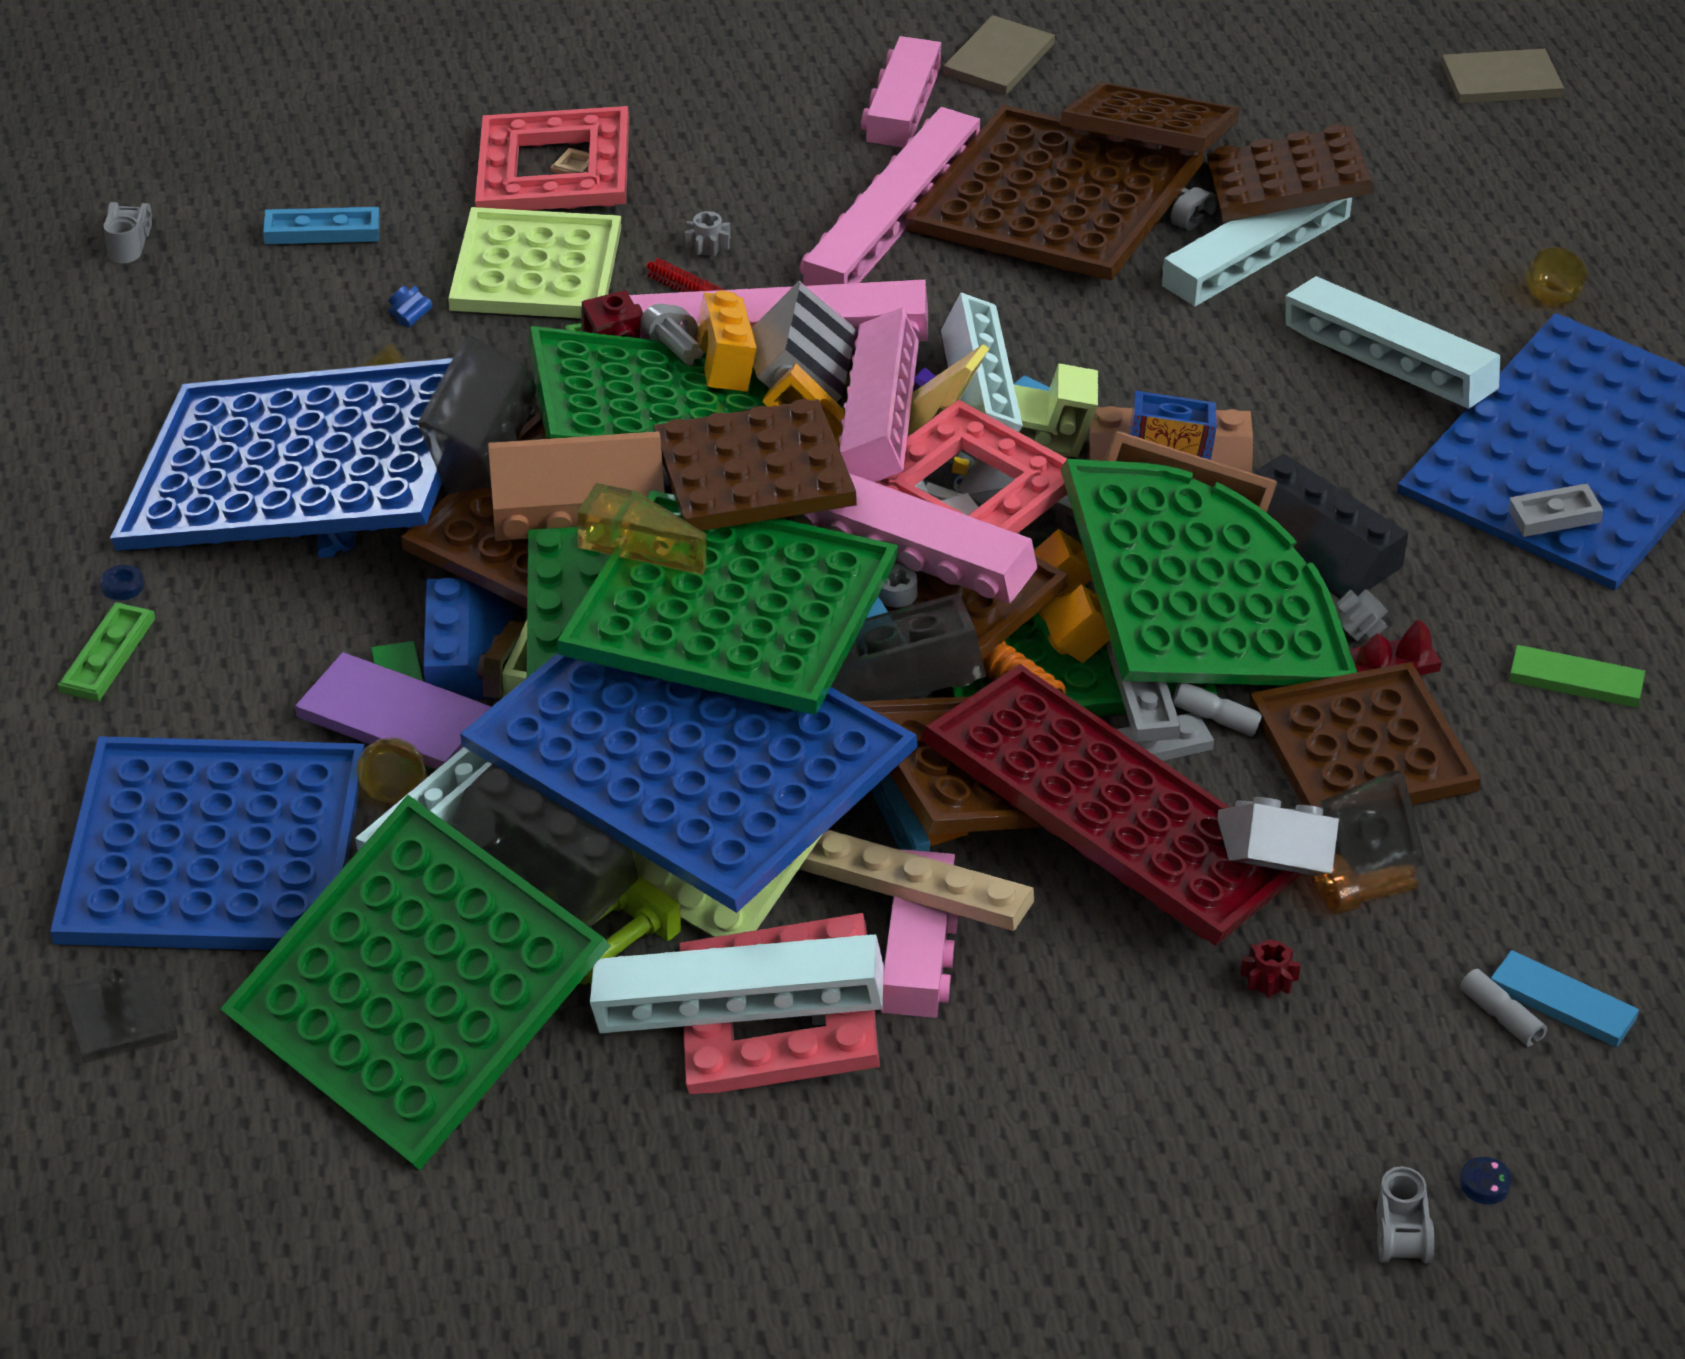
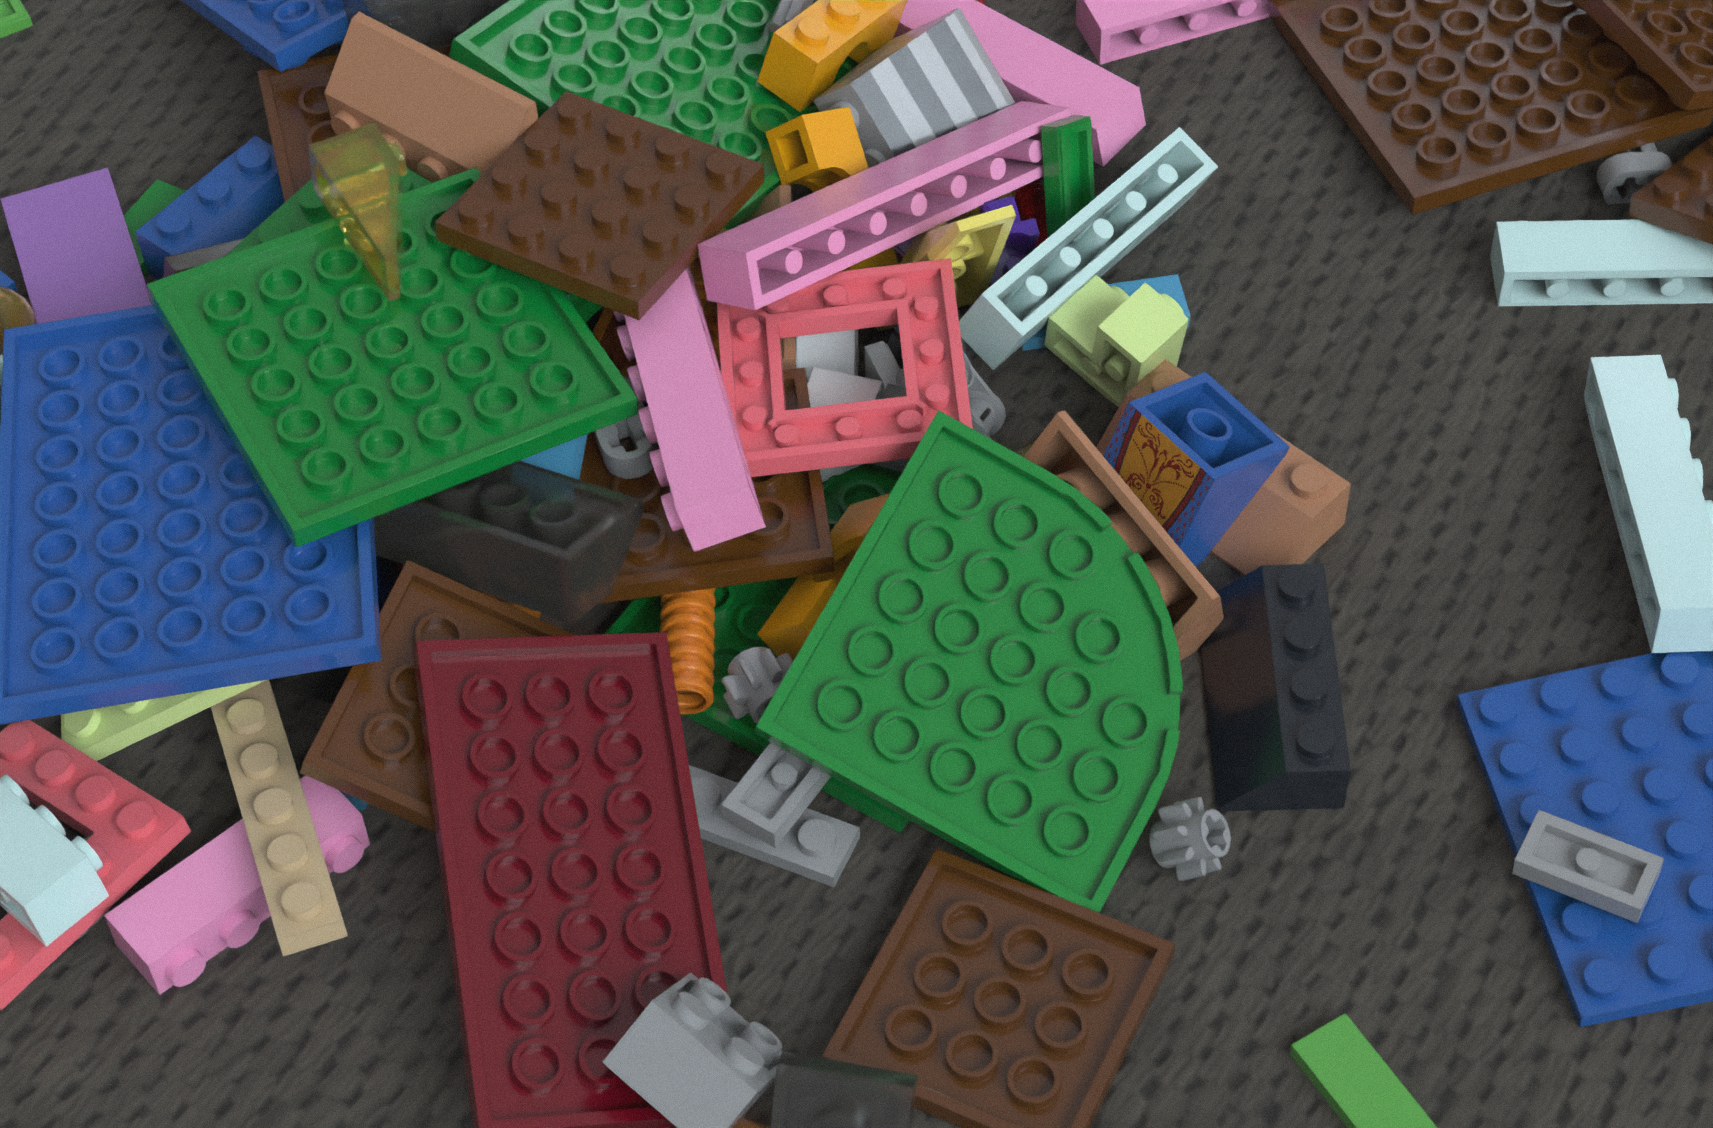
camera: 45 degrees right, 10 degrees up
(925, 341) = (1067, 169): none -> green tile
(1085, 667) = (754, 680): none -> light grey gear
(1220, 710) = (879, 846): light grey piece -> none
(1413, 647) = (1198, 926): dark red tile -> none

